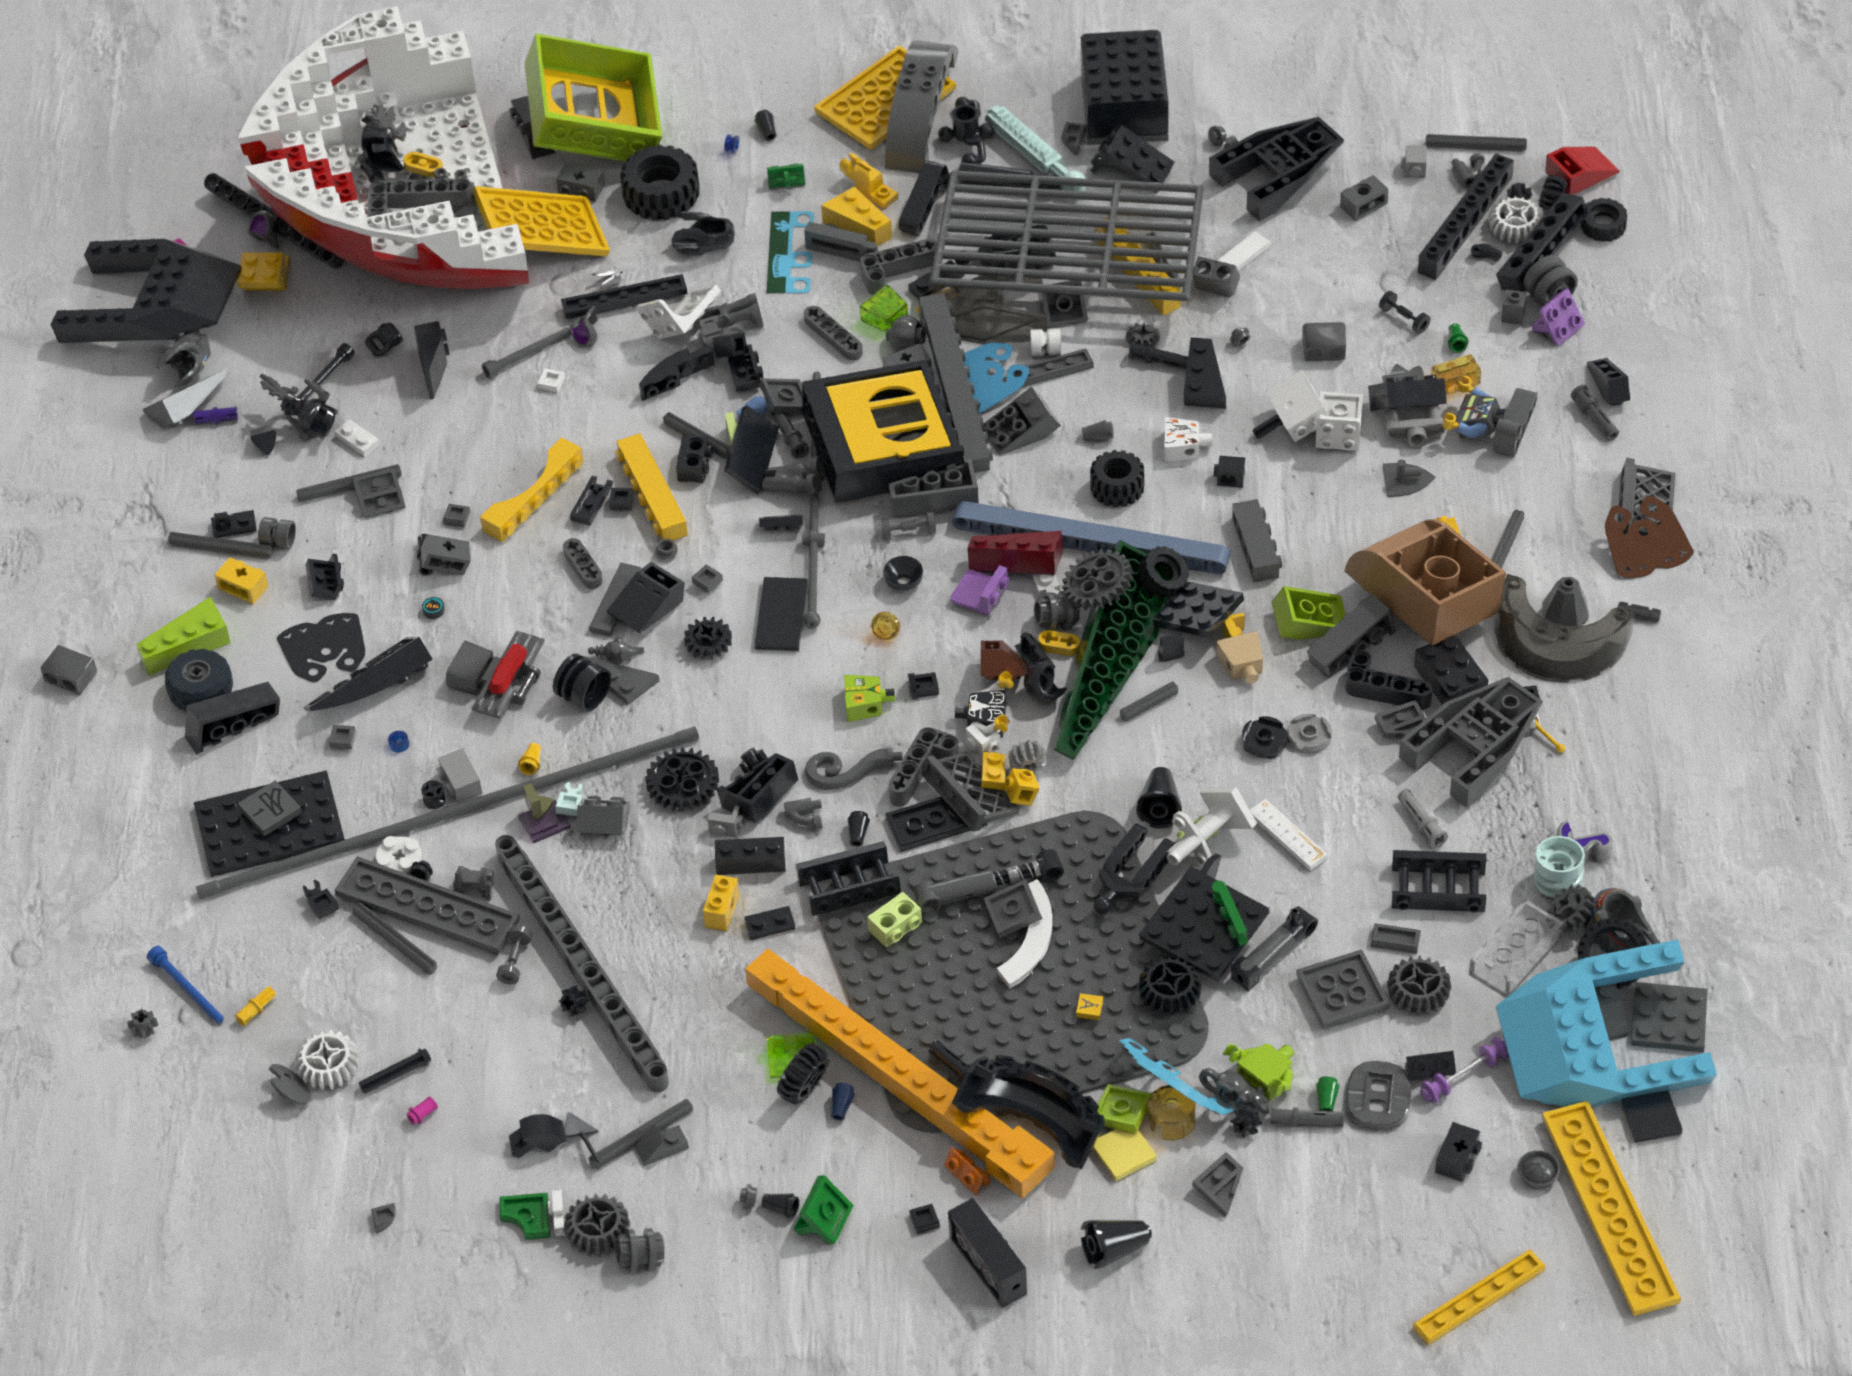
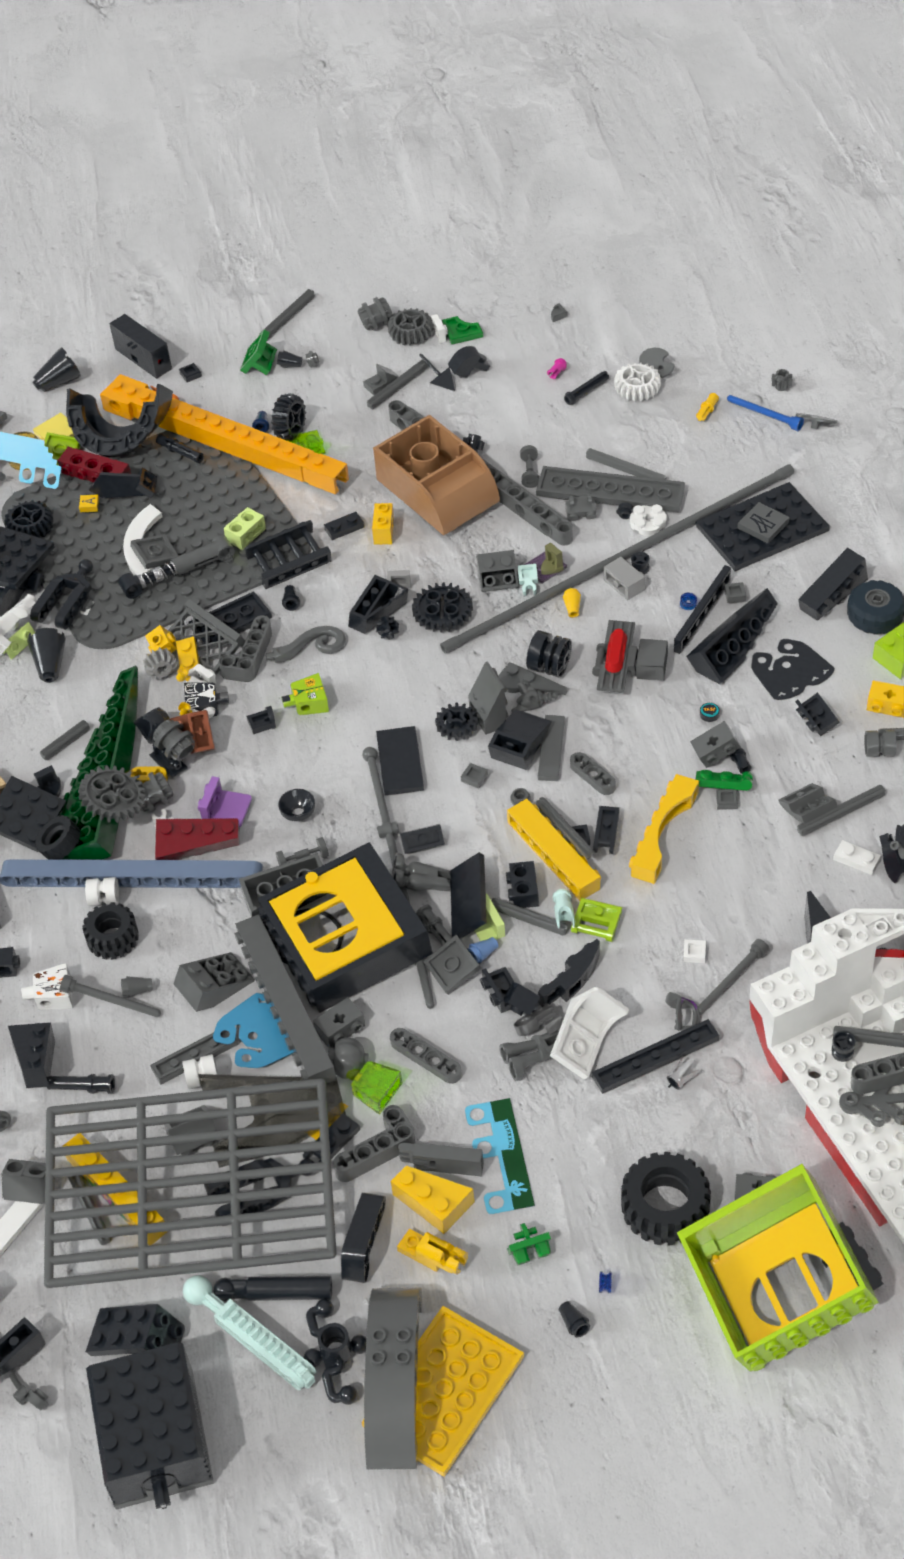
camera: 170 degrees right, 0 degrees up
(125, 948) = (816, 419): none -> dark grey piece
(320, 901) = (692, 477): black plate -> none
(388, 720) = (702, 609): none -> black tile
(452, 527) = (725, 780): none -> green plate
(544, 219) = (771, 1099): yellow plate -> none
(630, 423) = (599, 914): none -> lime plate
(633, 498) = (565, 828): none -> dark grey axle
(642, 933) = (435, 474): none -> medium nougat brick
(662, 426) = (563, 907): none -> light aqua piece
(666, 635) = (489, 699): none -> dark grey slope
(704, 234) = (593, 1137): black hair -> none
(750, 855) = (370, 559): black brick -> none
(765, 1296) = (289, 312): none -> dark grey axle
(800, 807) = (342, 604): dark grey plant -> none
(885, 626) = (302, 758): clear yellow cone -> none
(1012, 1008) = (124, 485): none -> black piece
(1023, 639) = (177, 743): none -> dark grey piece
(1073, 136) = (209, 1376): dark grey tile -> none
(1076, 1050) = (89, 465): none -> dark red brick
(1122, 518) = (102, 891): none -> white wheel
(1151, 334) = (108, 1115): dark grey gear -> none
(1162, 418) = (69, 985): none -> dark grey piece

